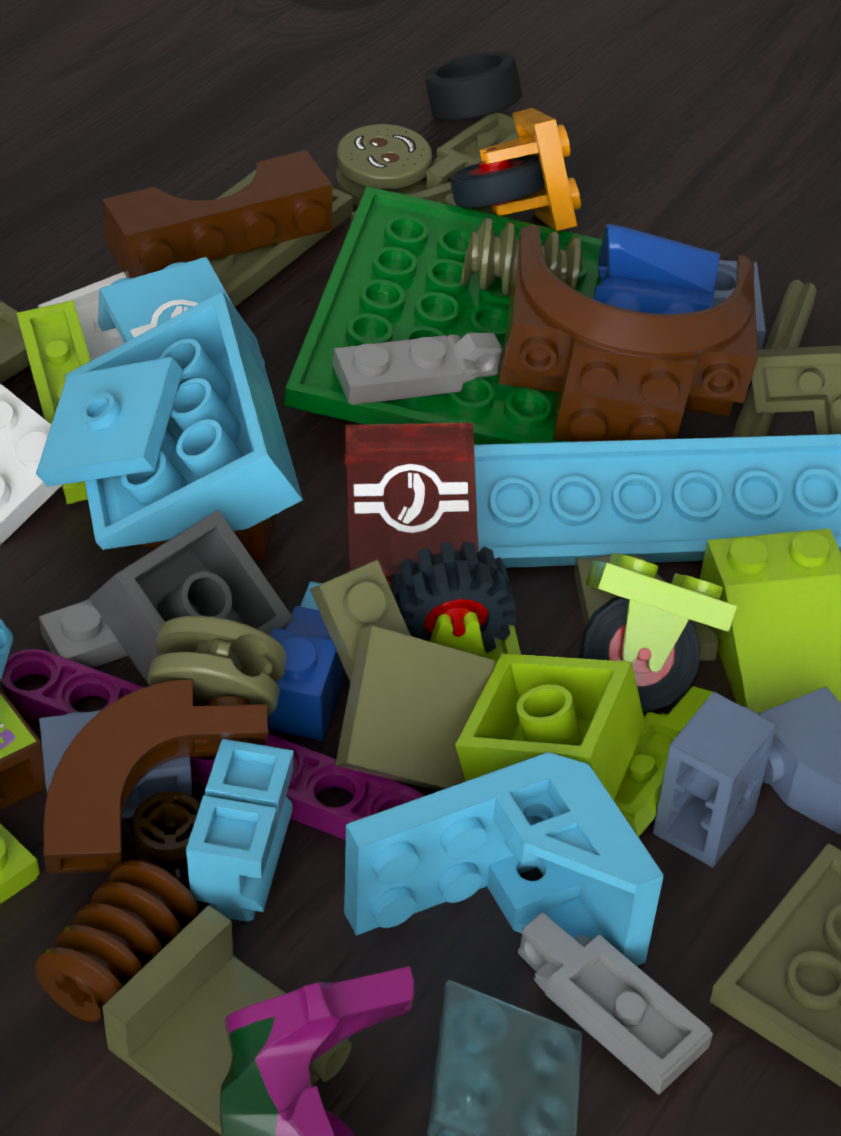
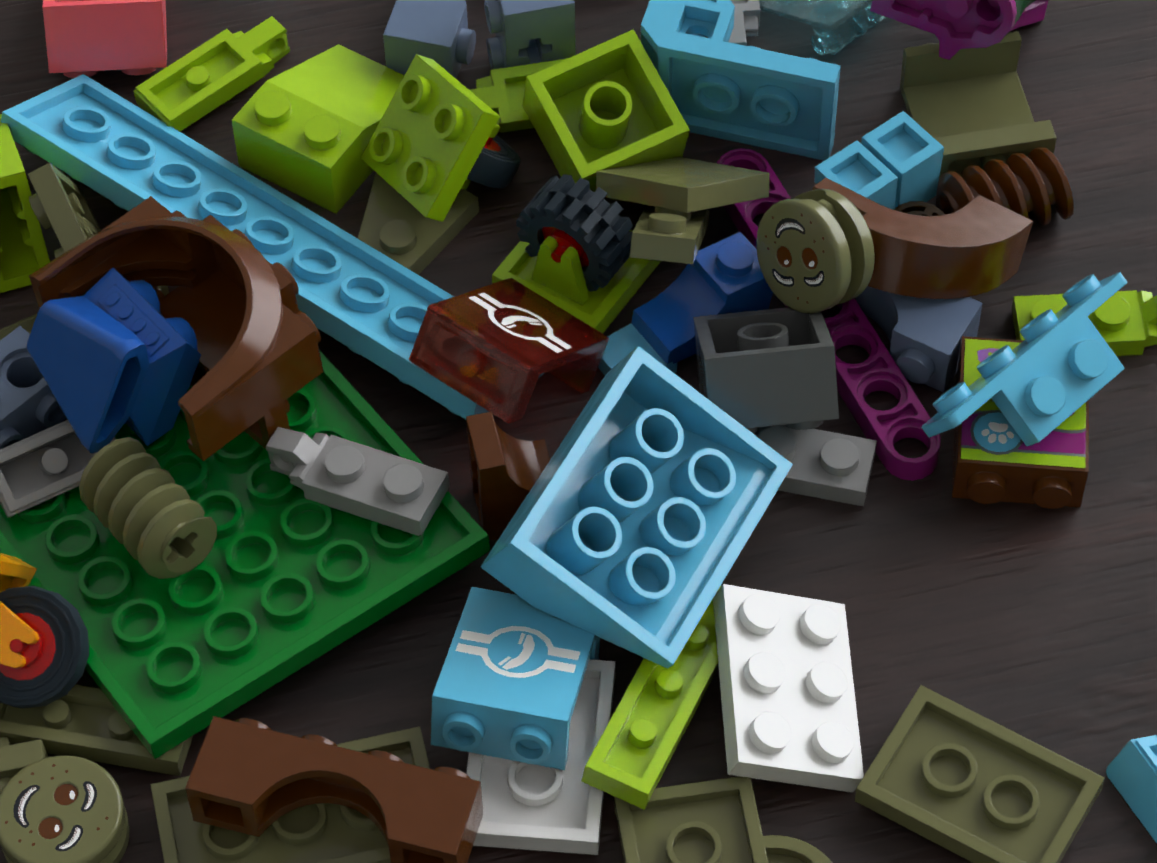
camera: 135 degrees left, 10 degrees up
(110, 422) = (699, 535): medium azure plate -> none
(316, 429) = (501, 471): none -> reddish brown arch

